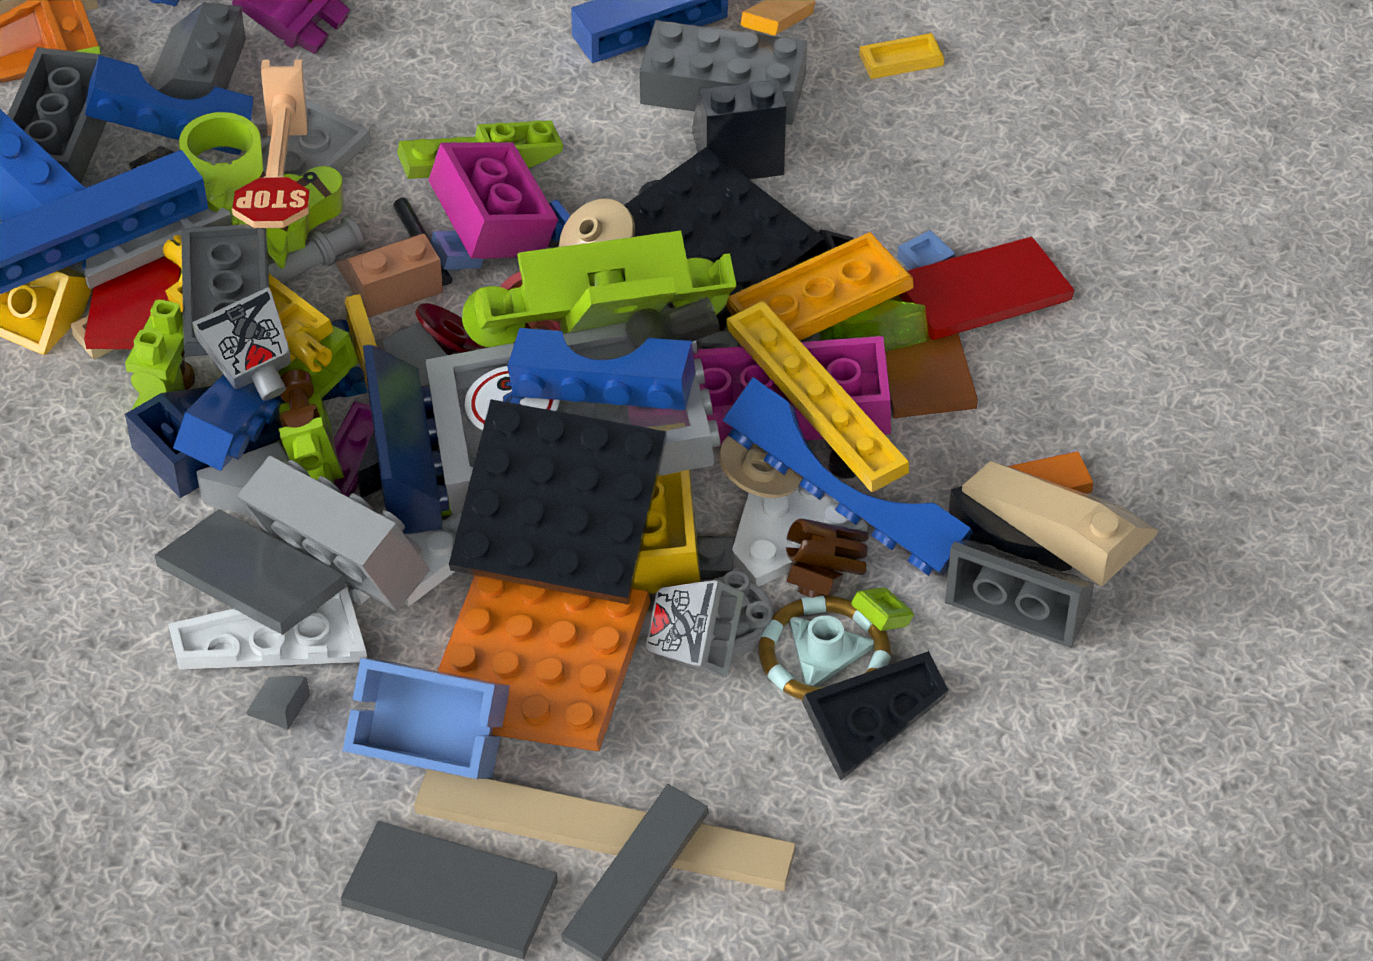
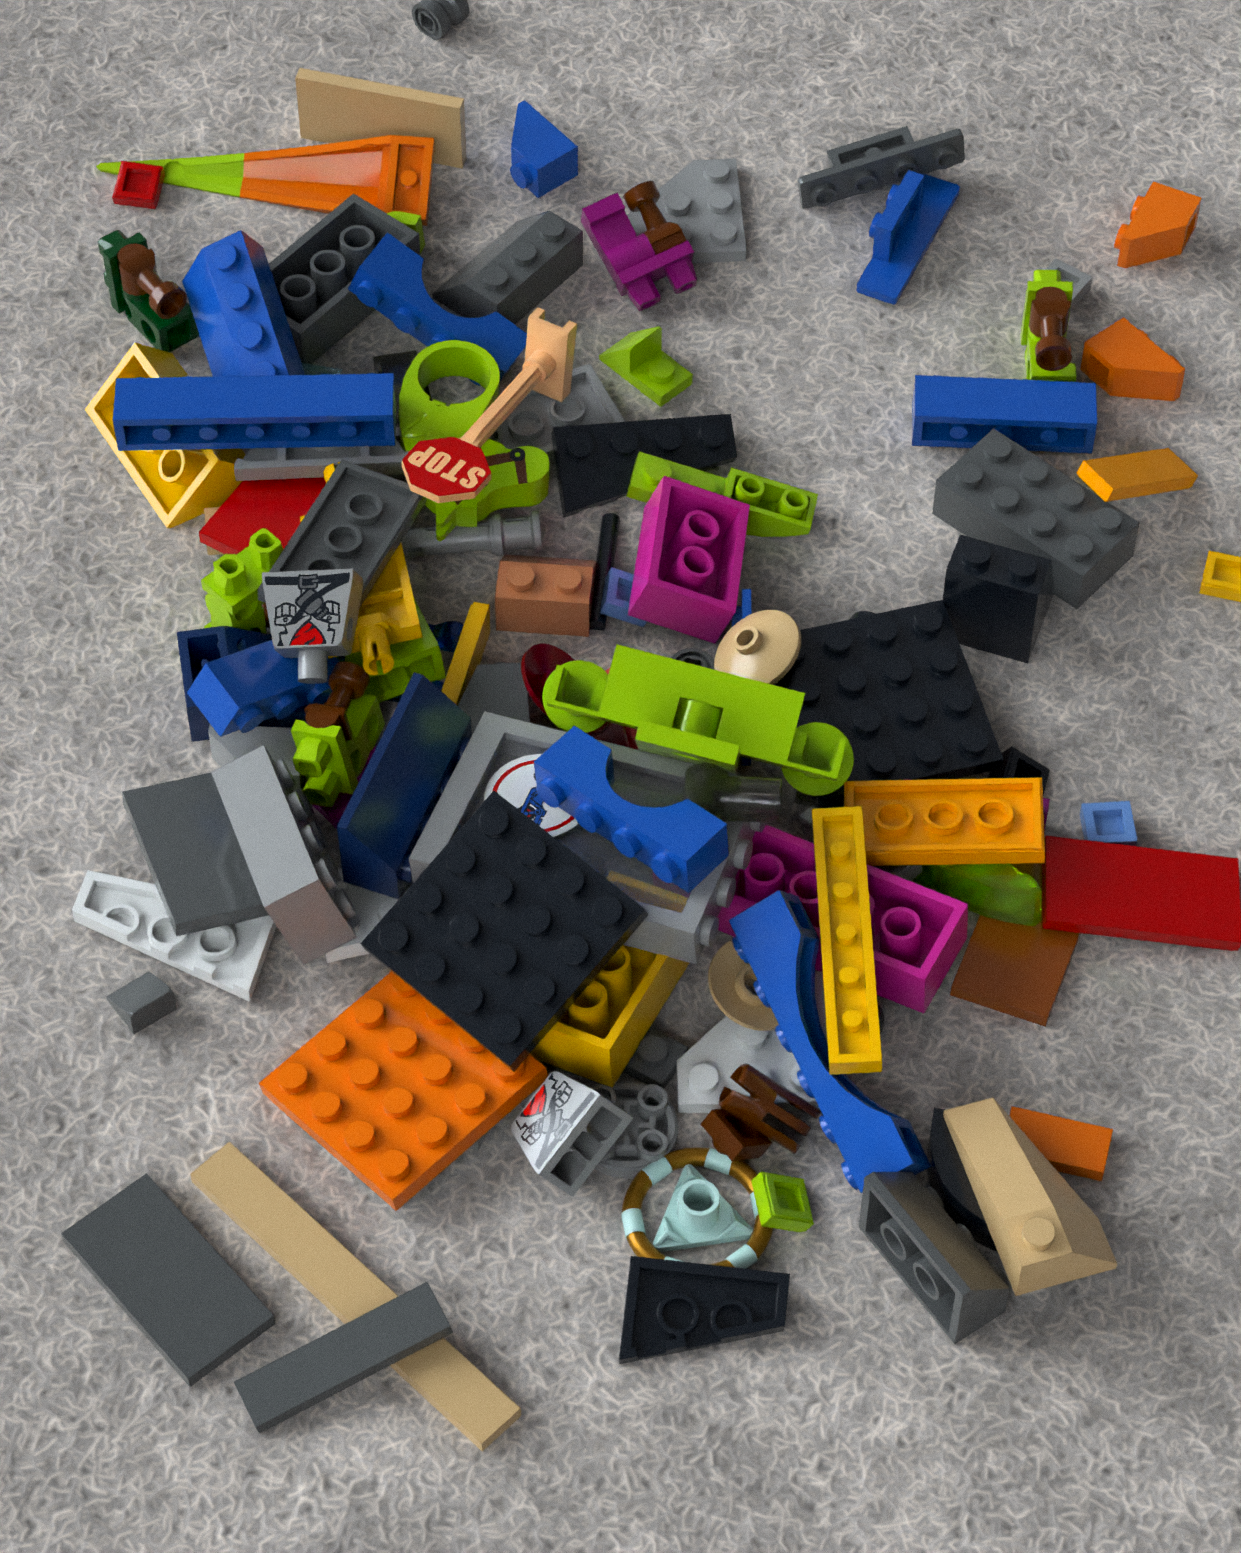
camera: 30 degrees right, 5 degrees up
(343, 86) = (646, 367): none -> lime slope
(370, 157) = (599, 459): none -> black wing
(426, 718) = (247, 1096): medium blue piece -> none

